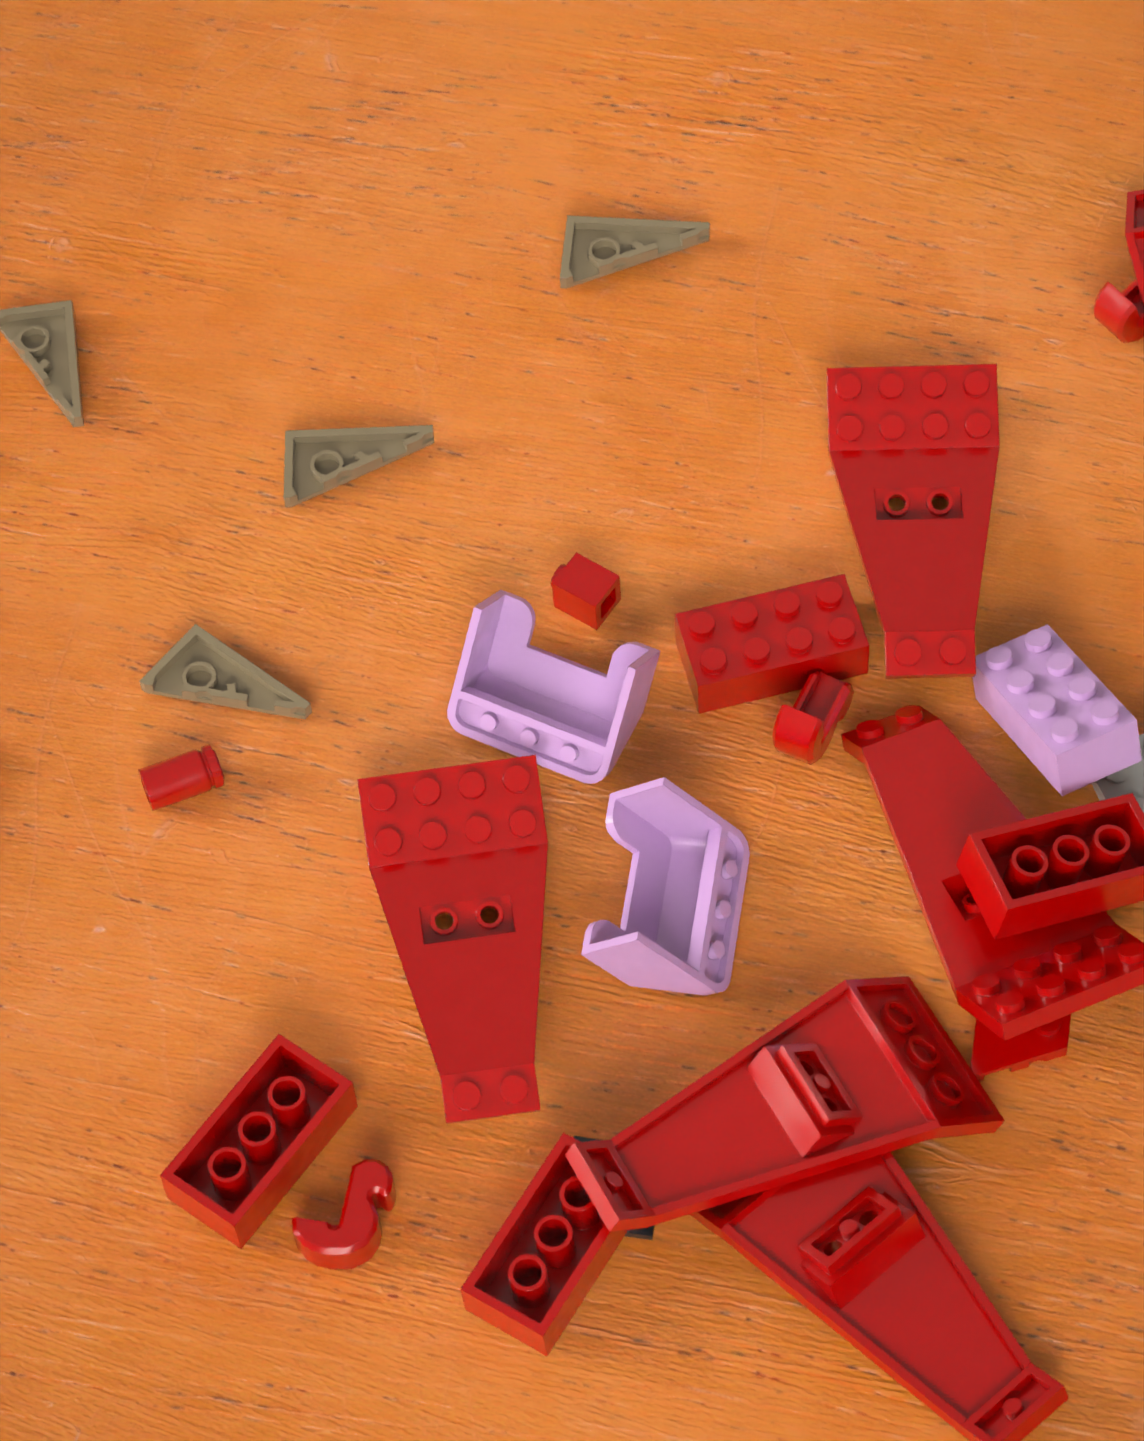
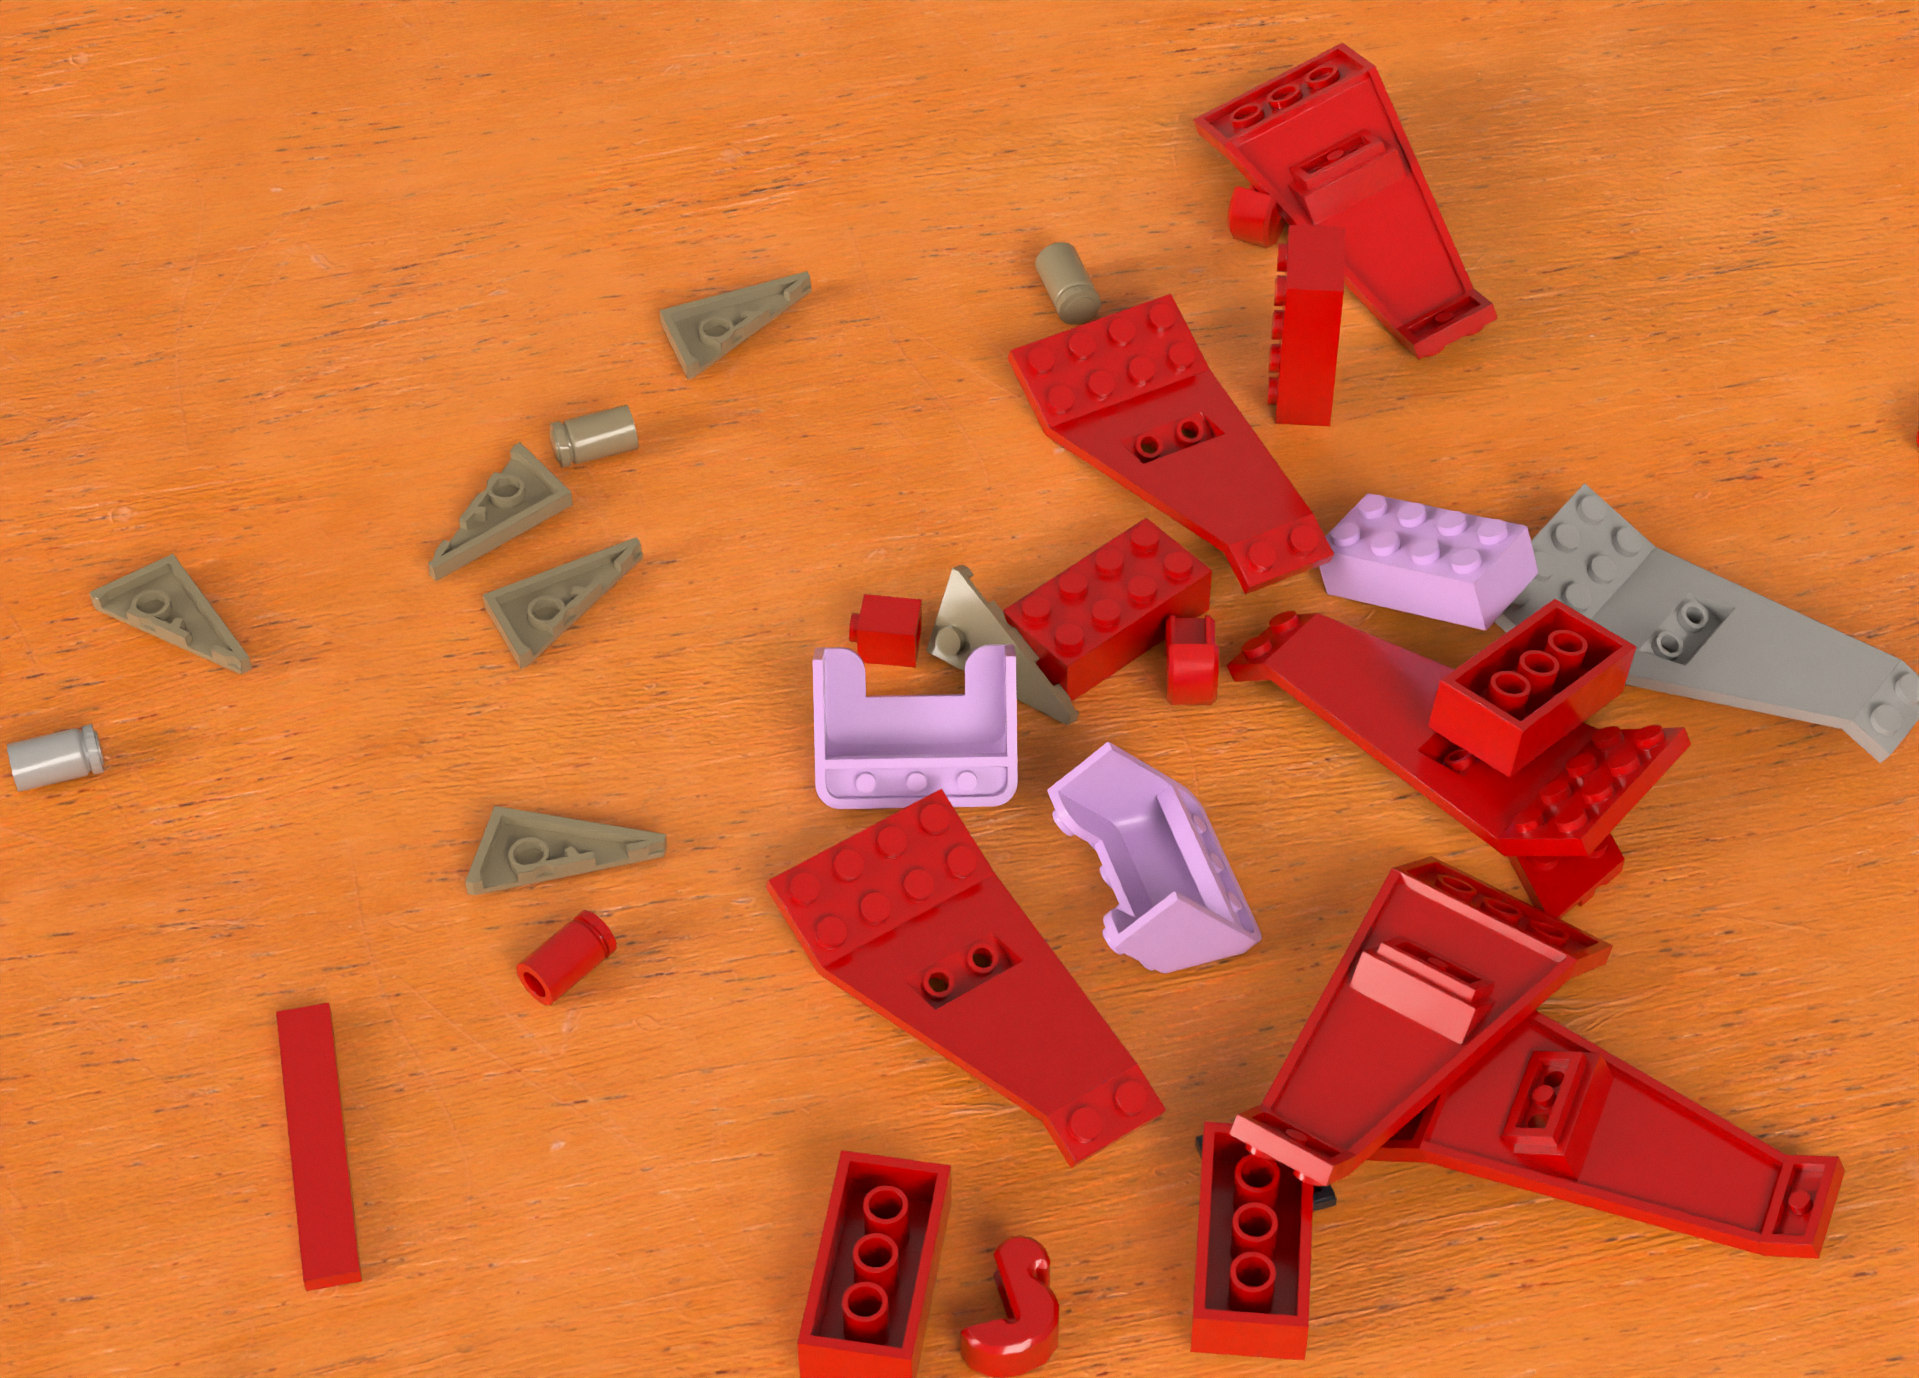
camera: 30 degrees left, 10 degrees down
(351, 356) = (507, 507): none -> dark tan wing
(451, 316) = (593, 436): none -> dark tan piece
(649, 621) = (970, 622): none -> dark tan wing
(925, 316) = (1068, 283): none -> dark tan piece
(1078, 446) = (1307, 325): none -> red brick

